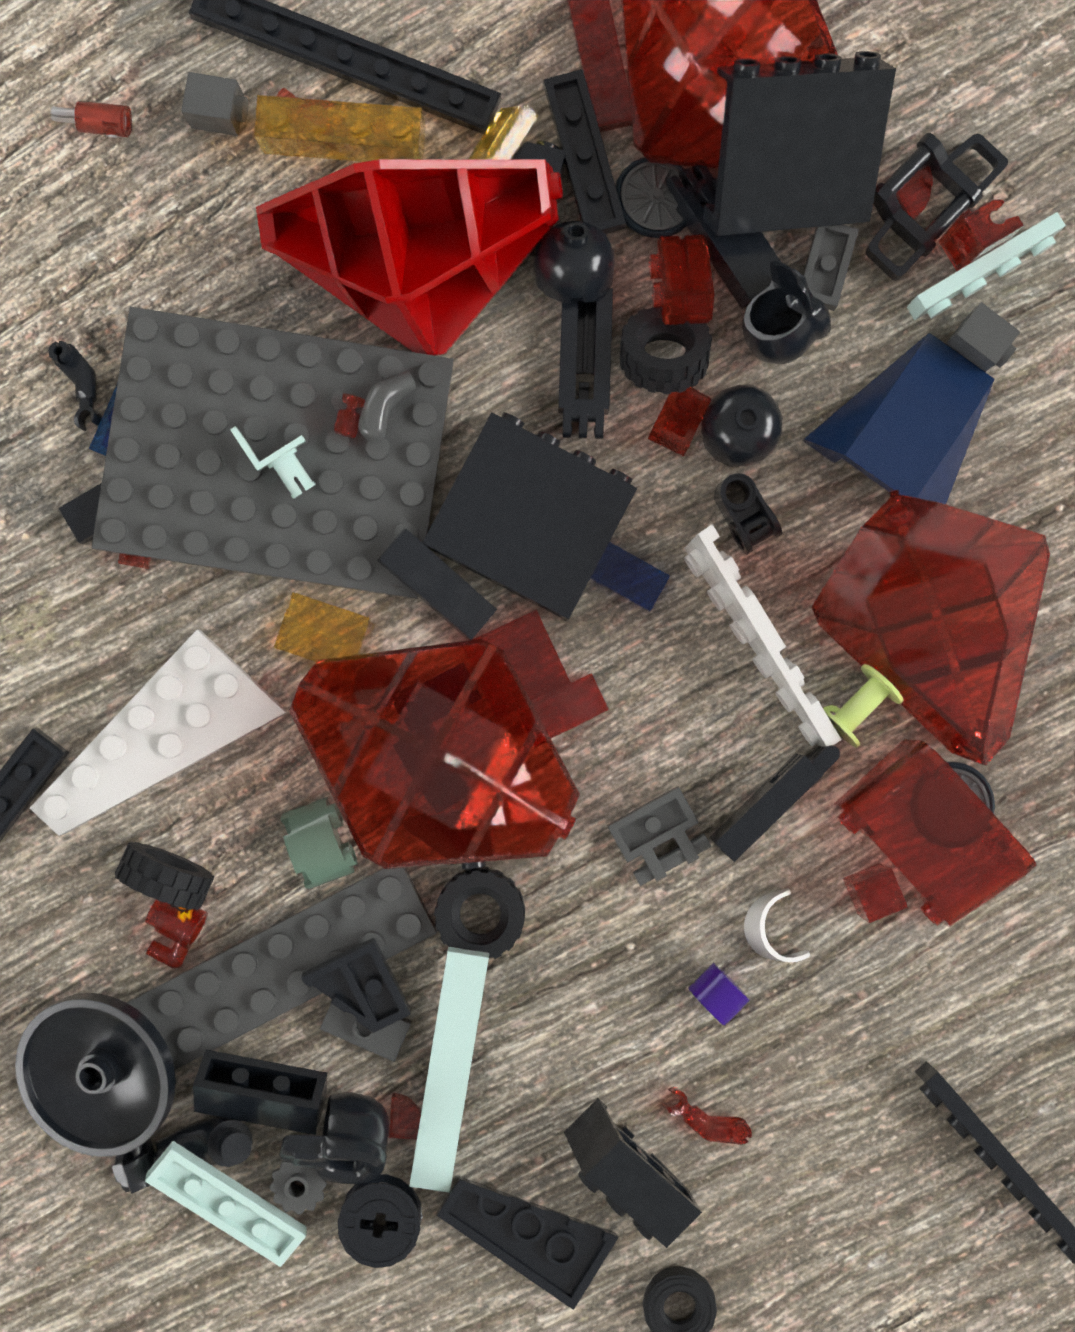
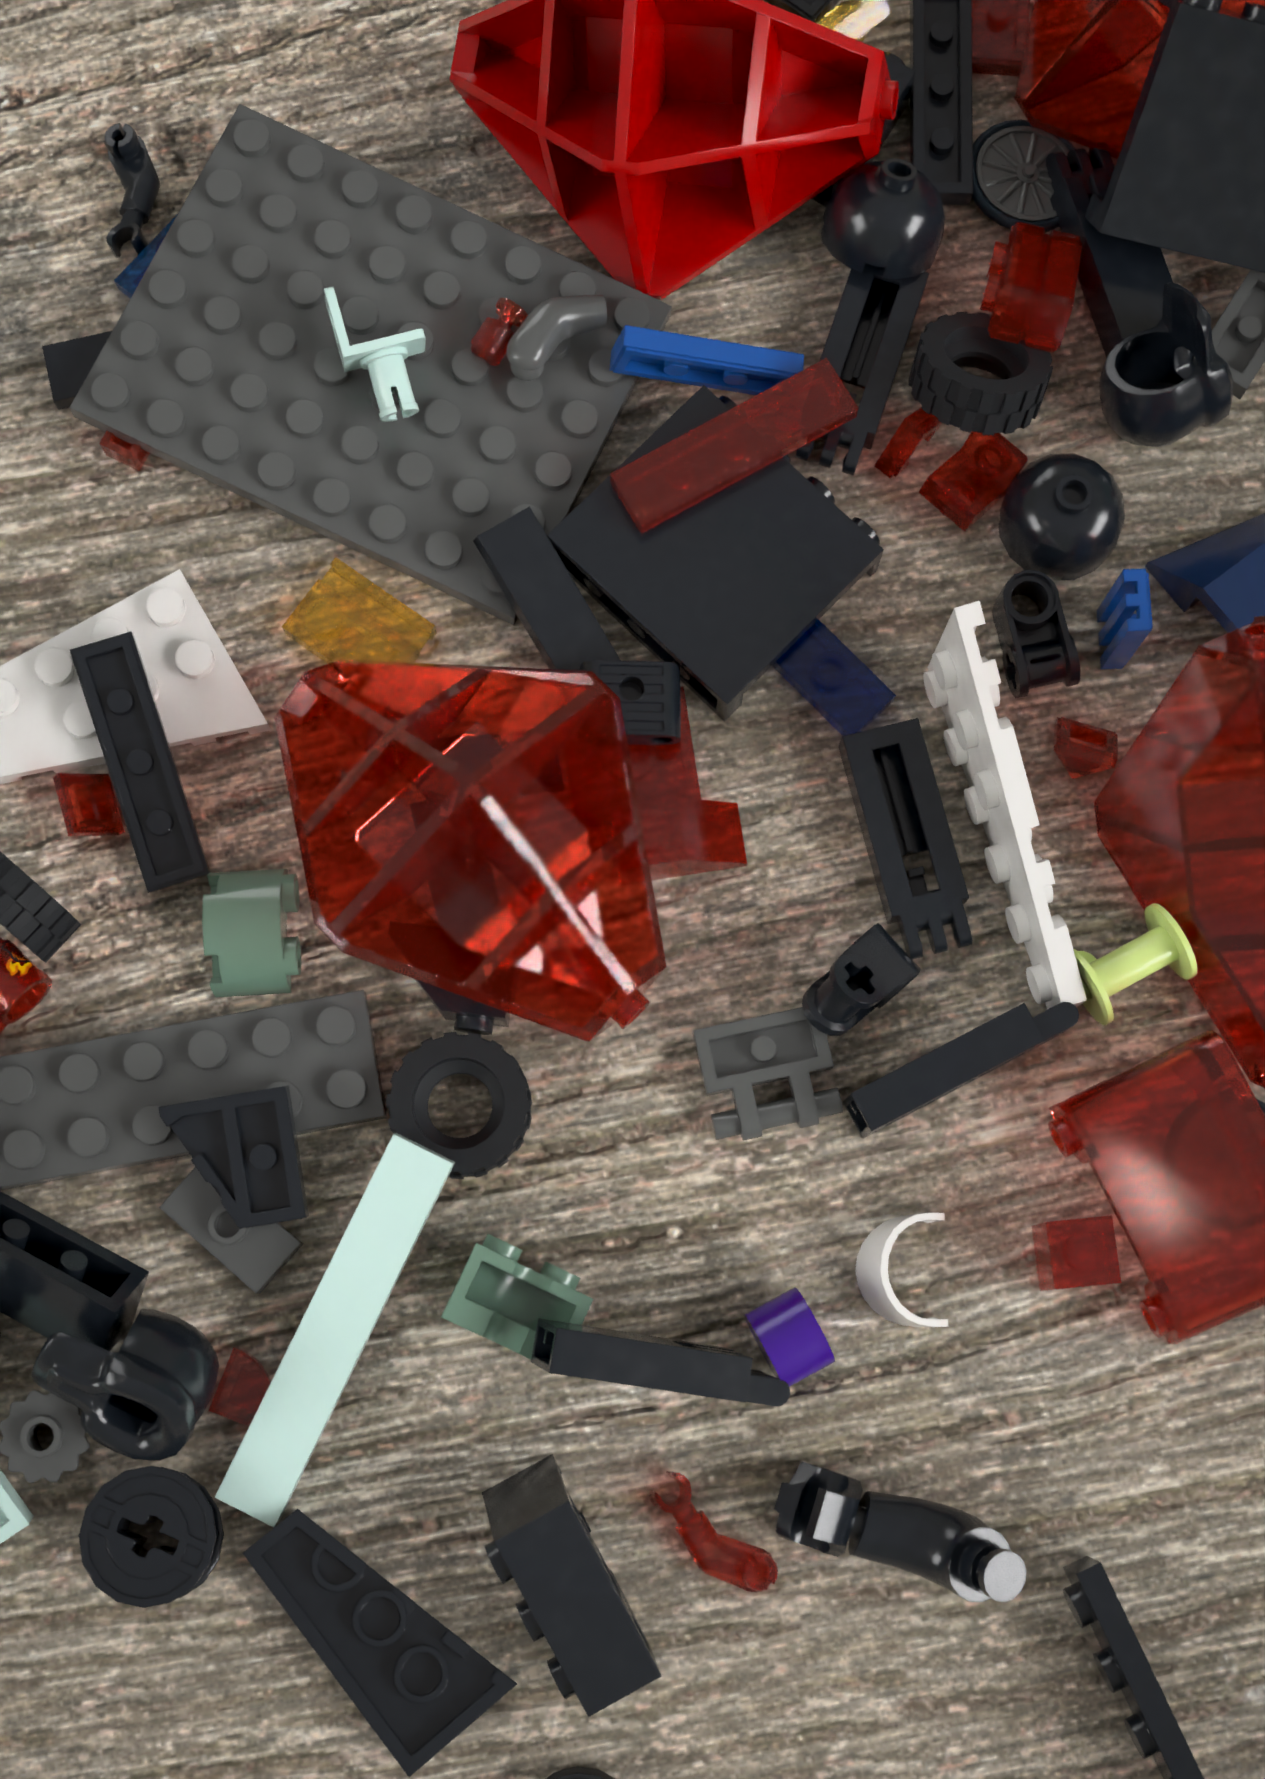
camera: 15 degrees right, 10 degrees down
(192, 797) = (88, 804): none -> clear red slope
(215, 762) = (140, 761): none -> black tile
(488, 395) = (701, 361): none -> blue tile
(511, 630) = (647, 698): none -> black piece
(523, 448) = (733, 445): none -> clear red tile
(552, 1022) = (506, 1299): none -> sand green cylinder
(630, 408) = (905, 441): none -> clear red tile
(643, 1037) = (653, 1363): none -> black hinge
(696, 650) = (902, 817): none -> black hinge
(699, 767) = (858, 982): none -> black piece
(796, 573) = (1084, 747): none -> clear red slope
(797, 488) = (1123, 628): none -> blue tile
(827, 1083) = (899, 1531): none -> black piece

